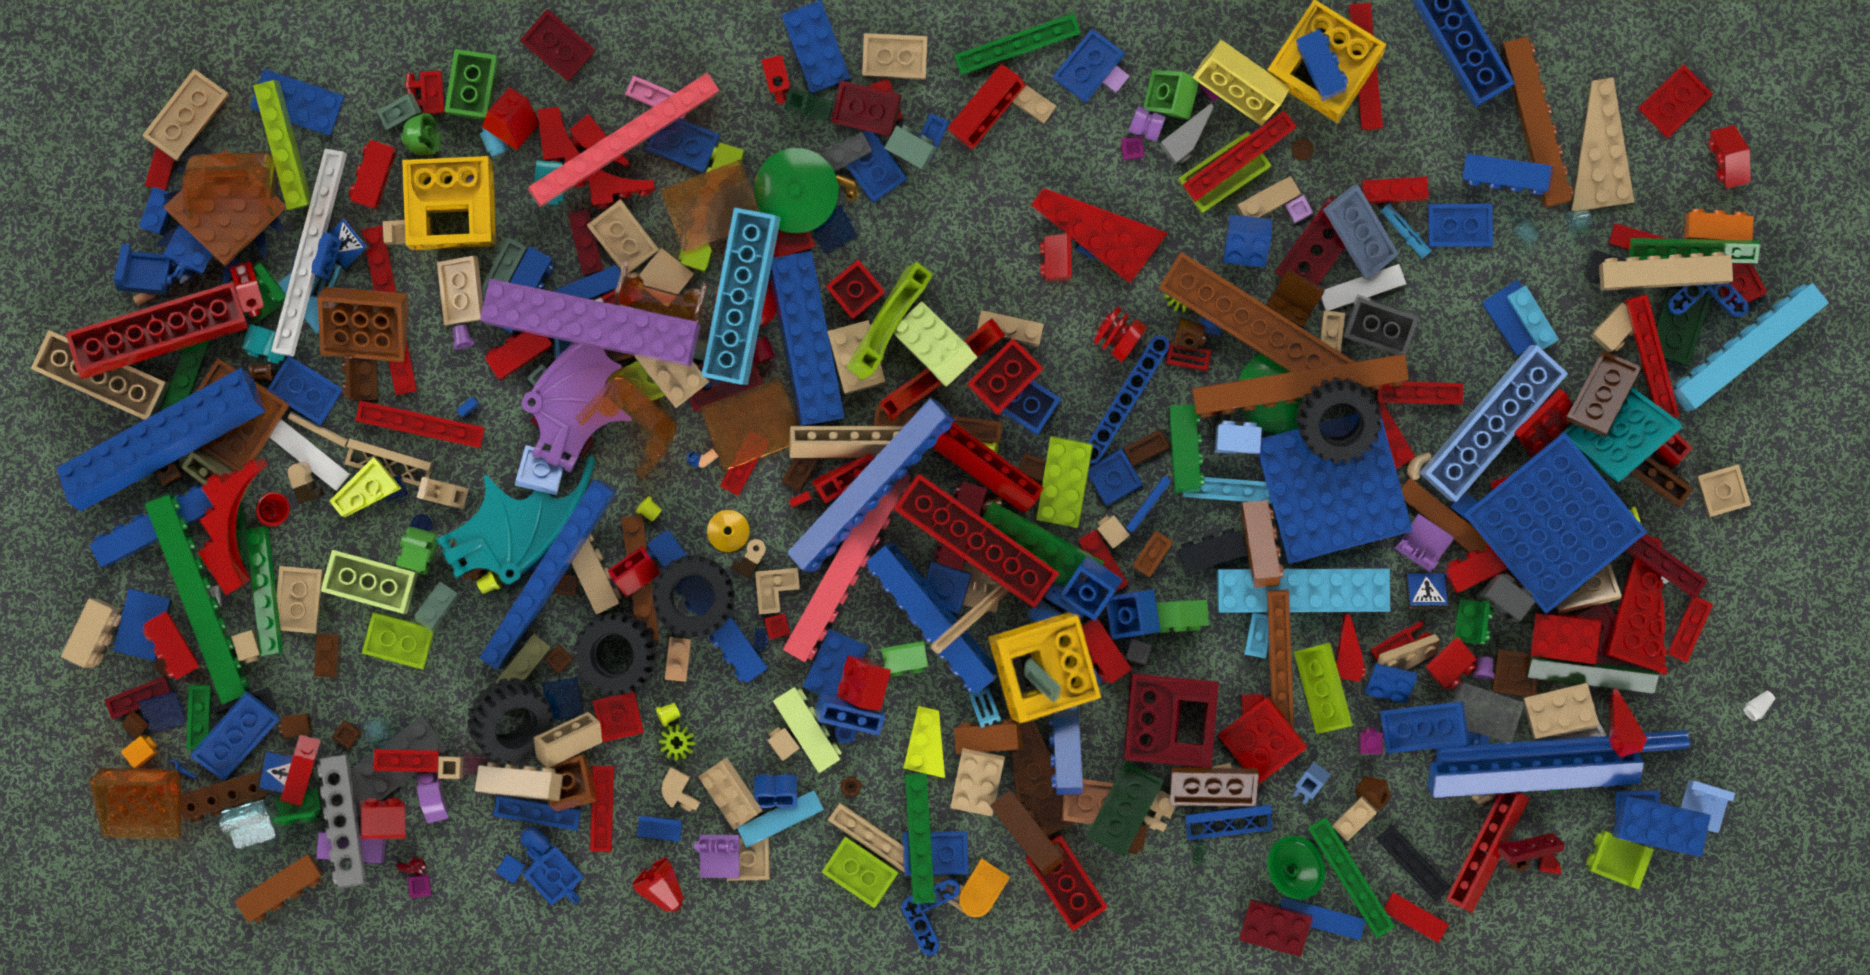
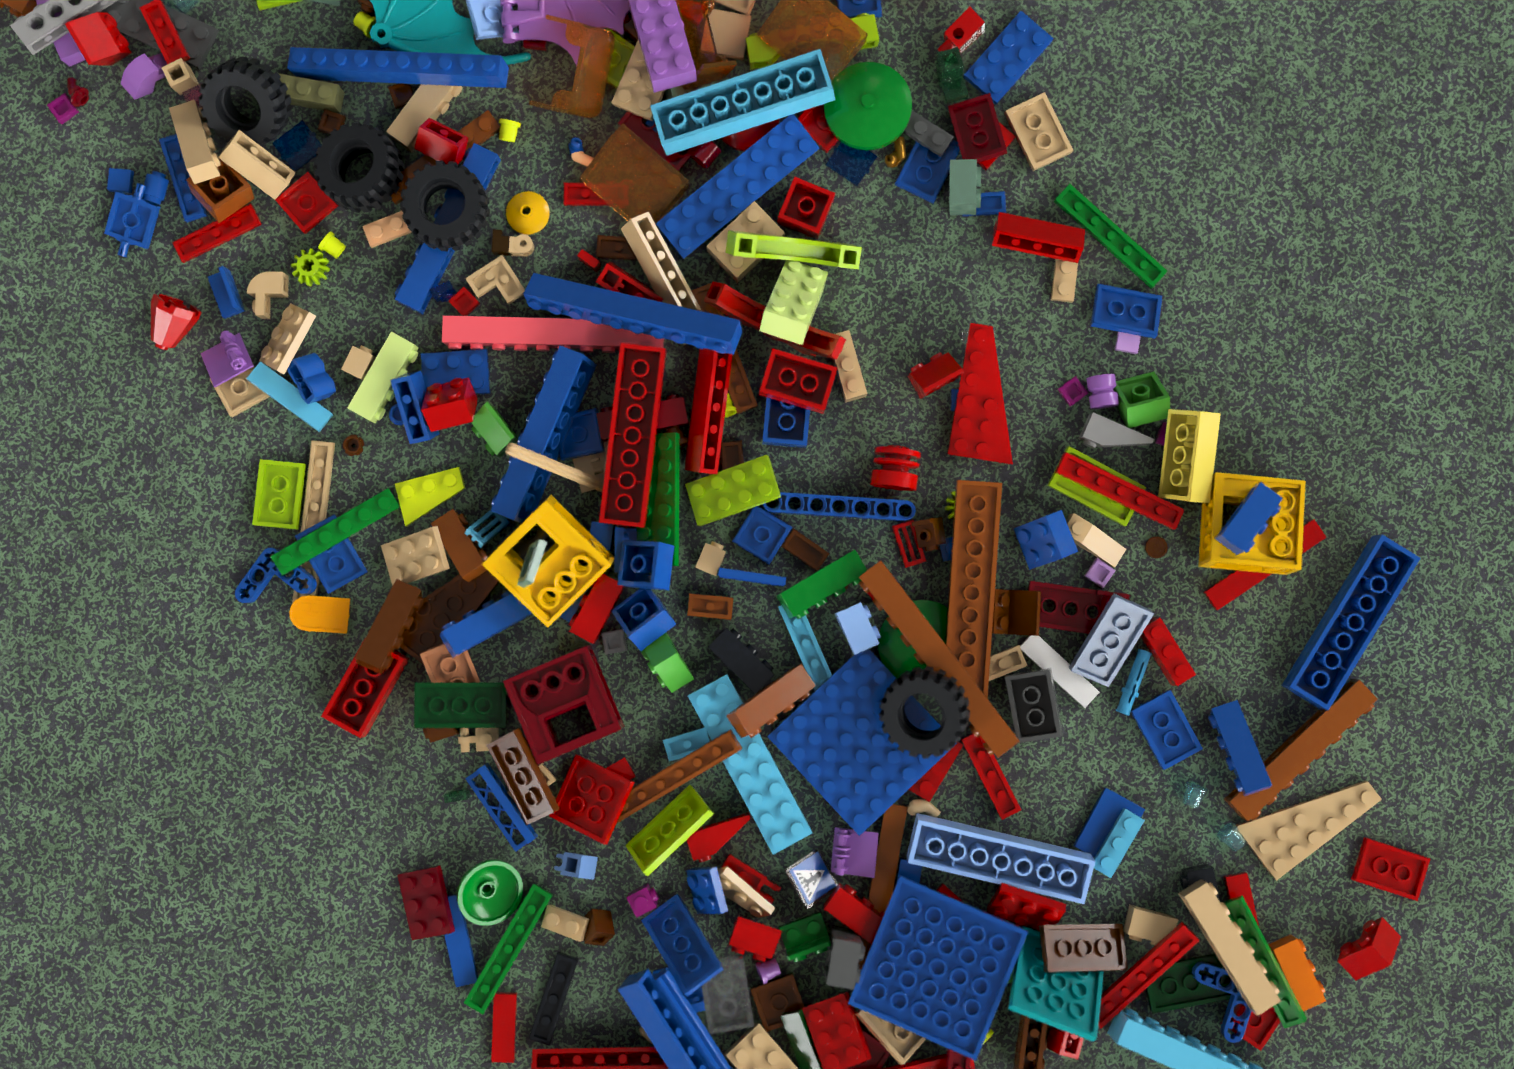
camera: 65 degrees right, 0 degrees up
(1094, 545) = (688, 552): red plate -> none

